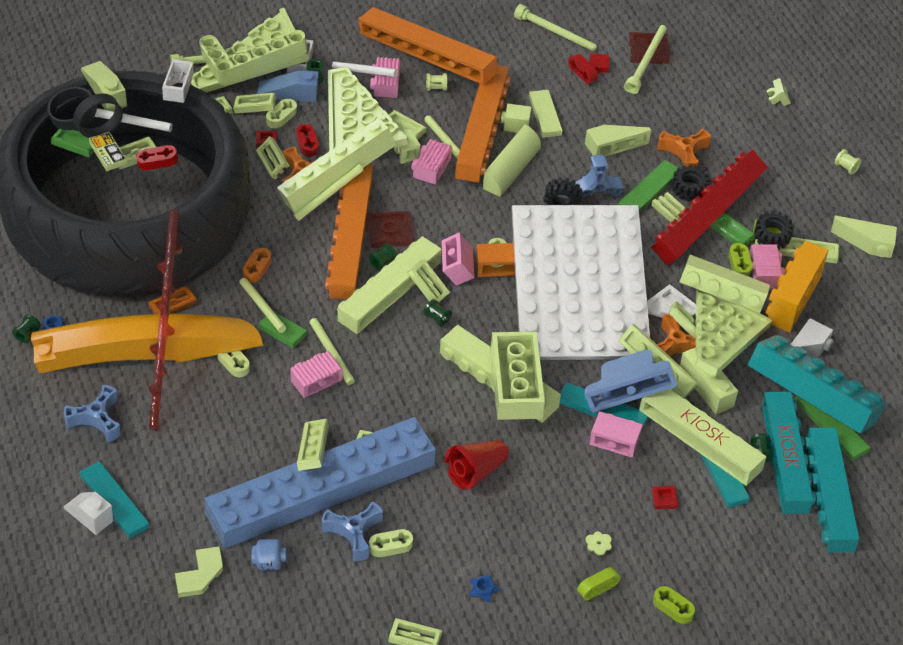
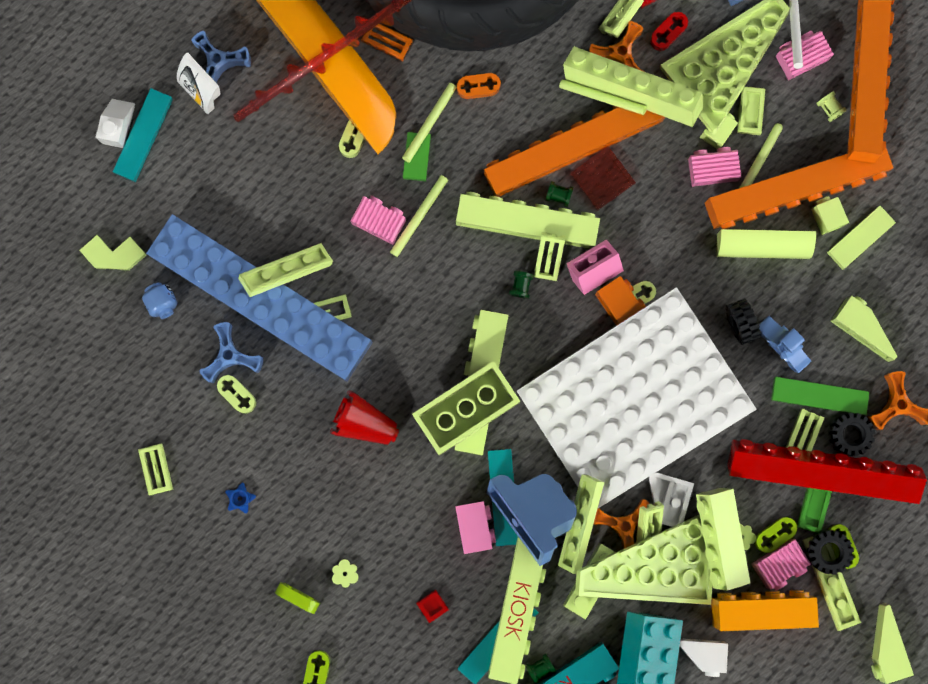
camera: 65 degrees right, 35 degrees up
(107, 429) = (197, 83): none -> white slope

